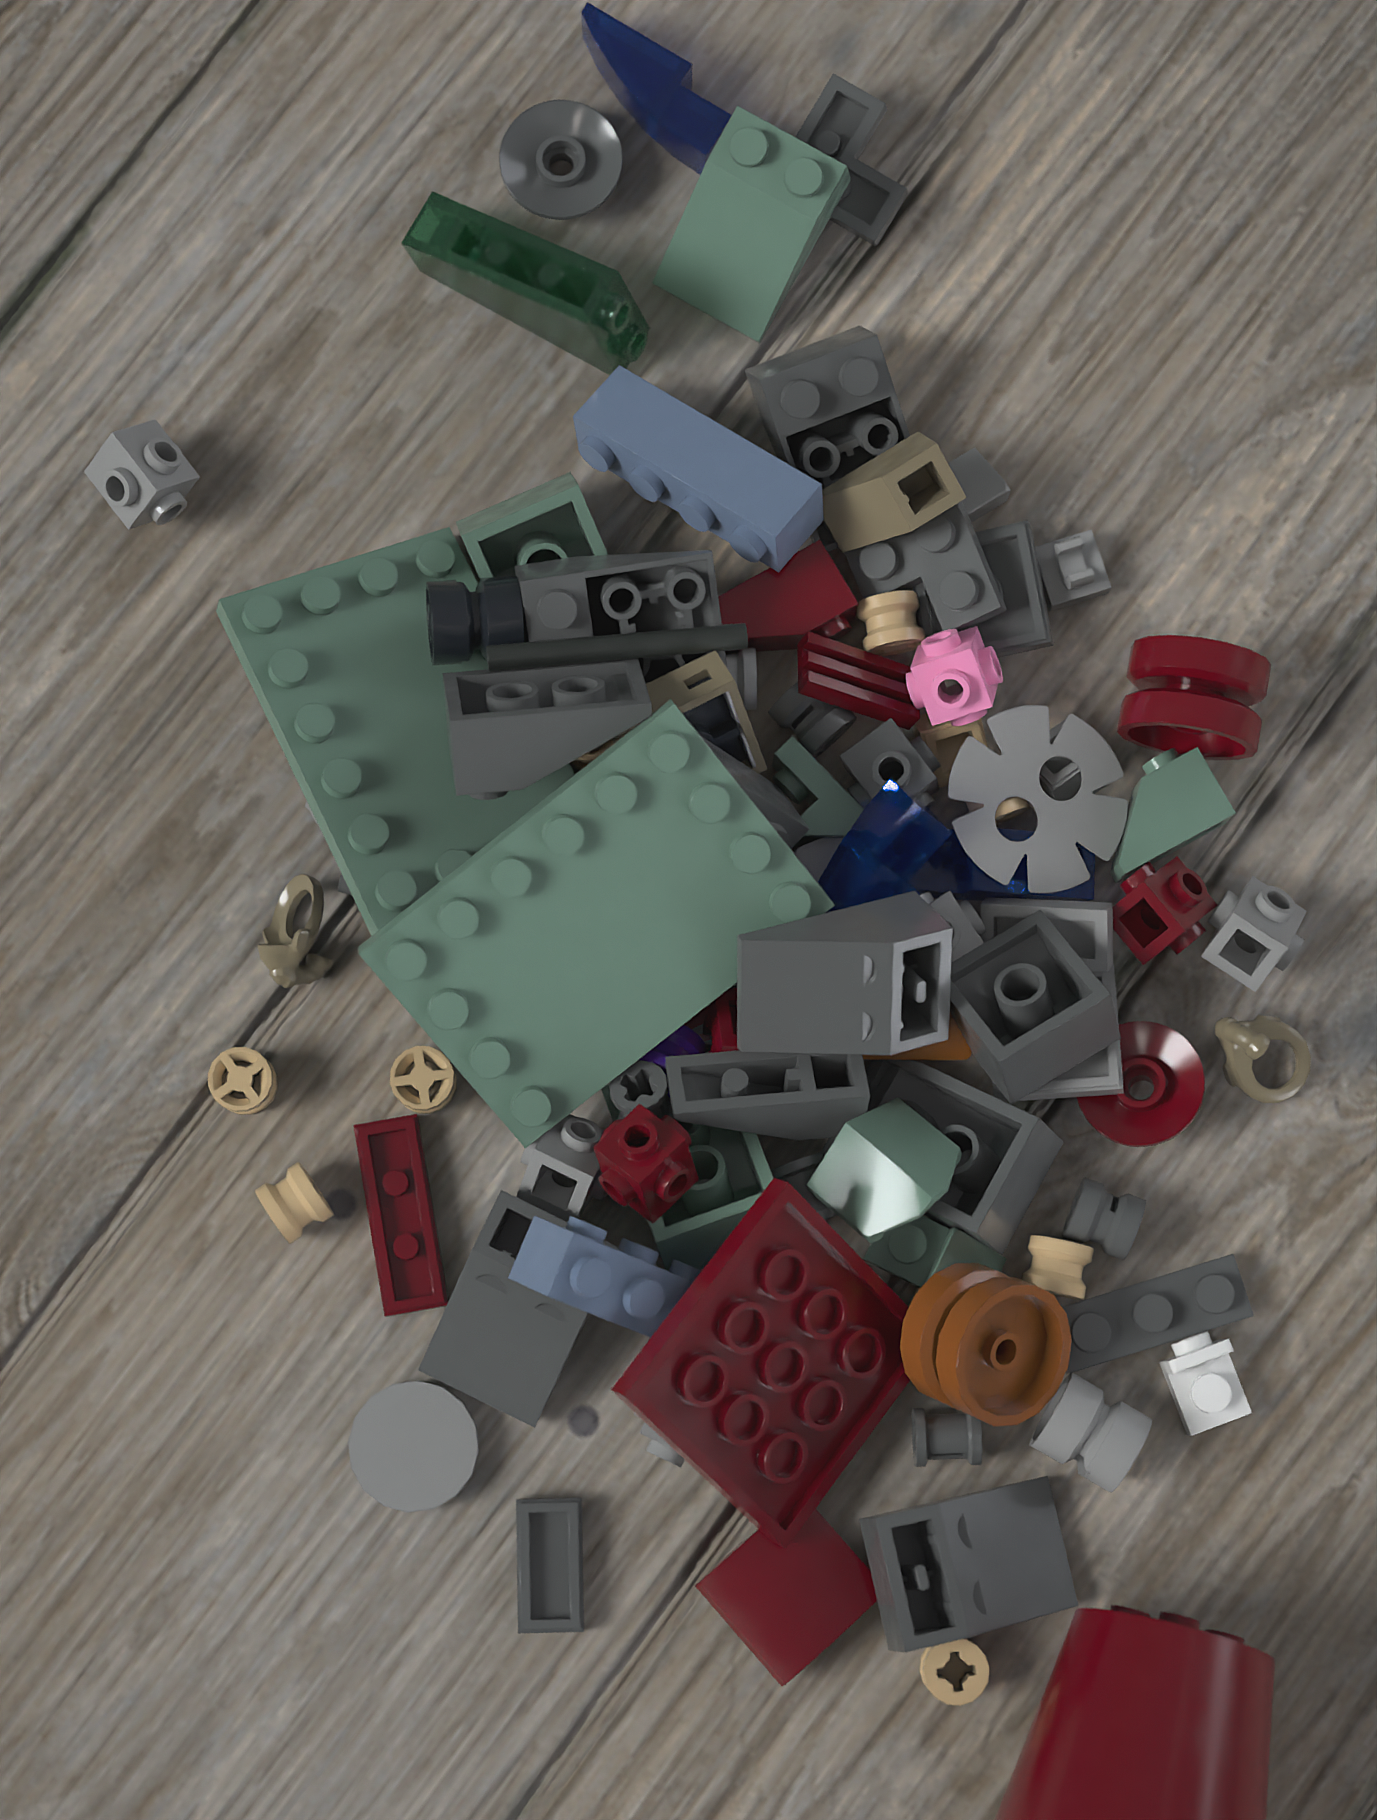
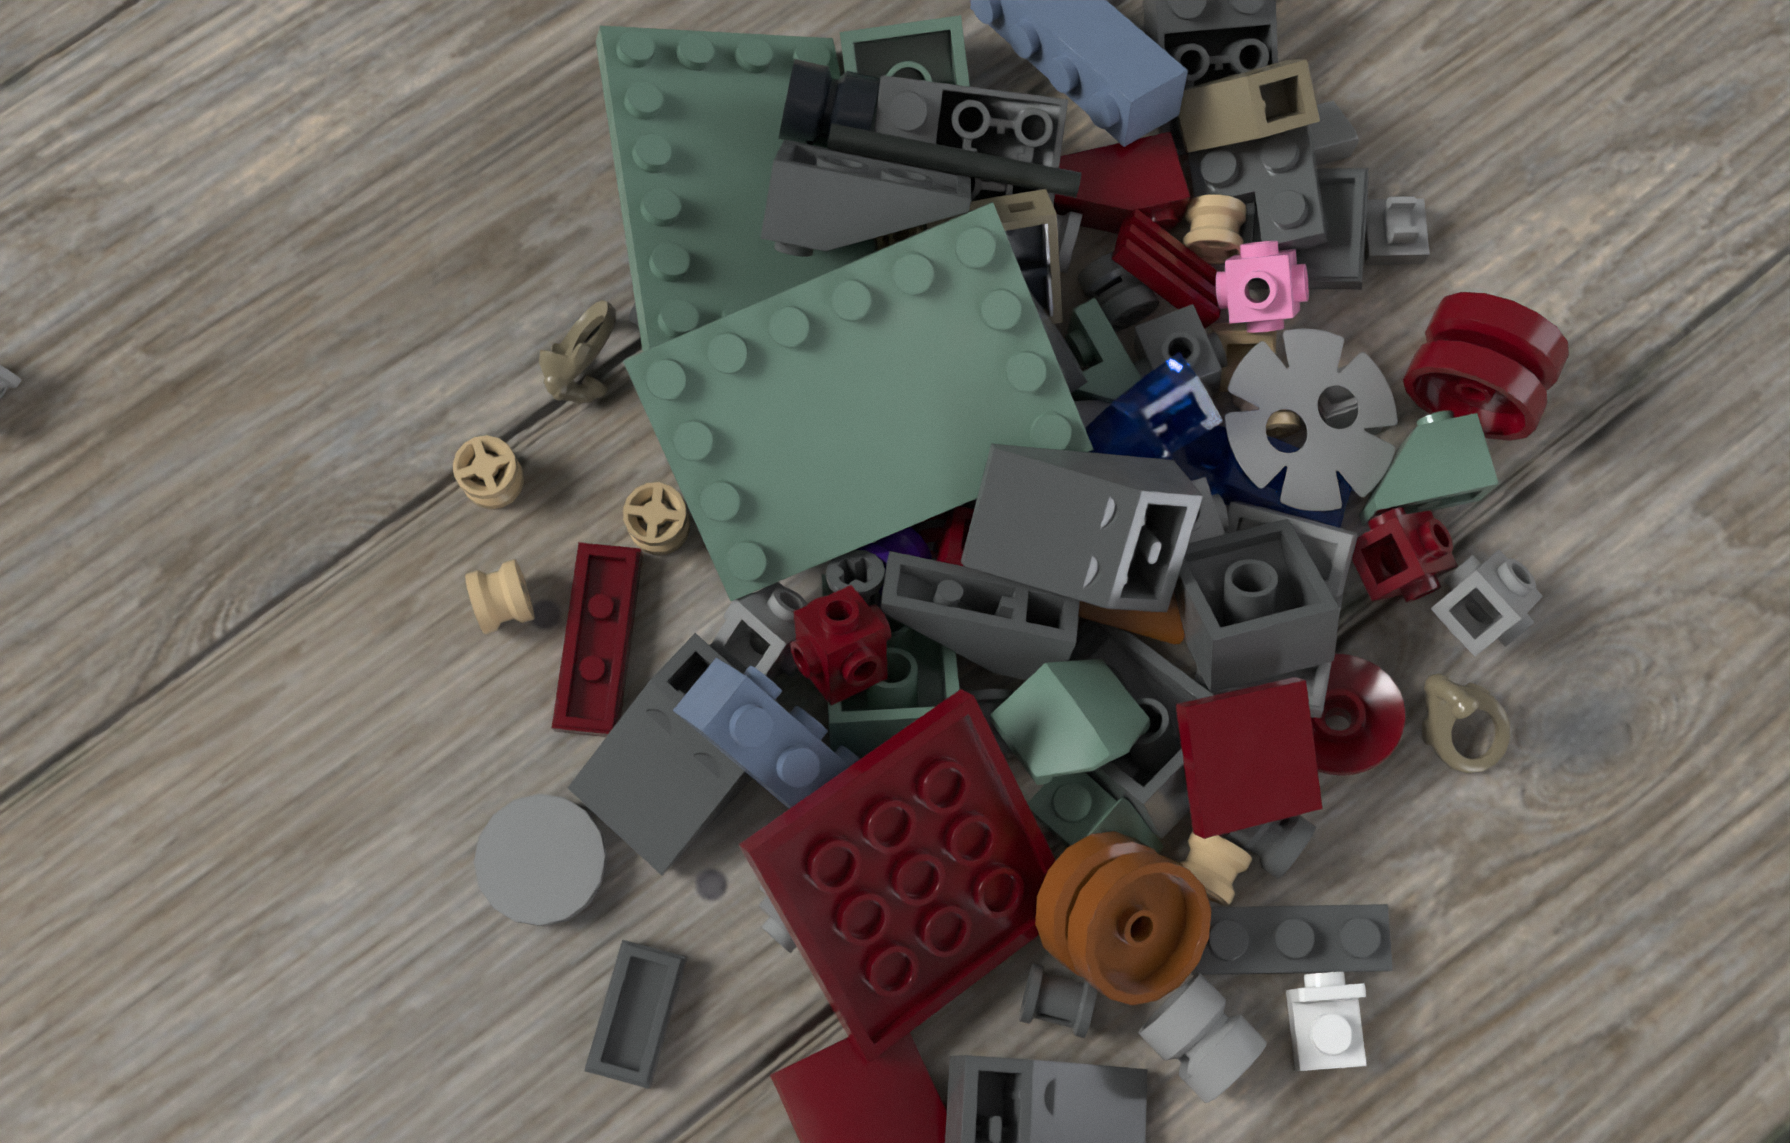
camera: 15 degrees right, 5 degrees down
(1064, 1158) = (1249, 757): none -> dark red tile

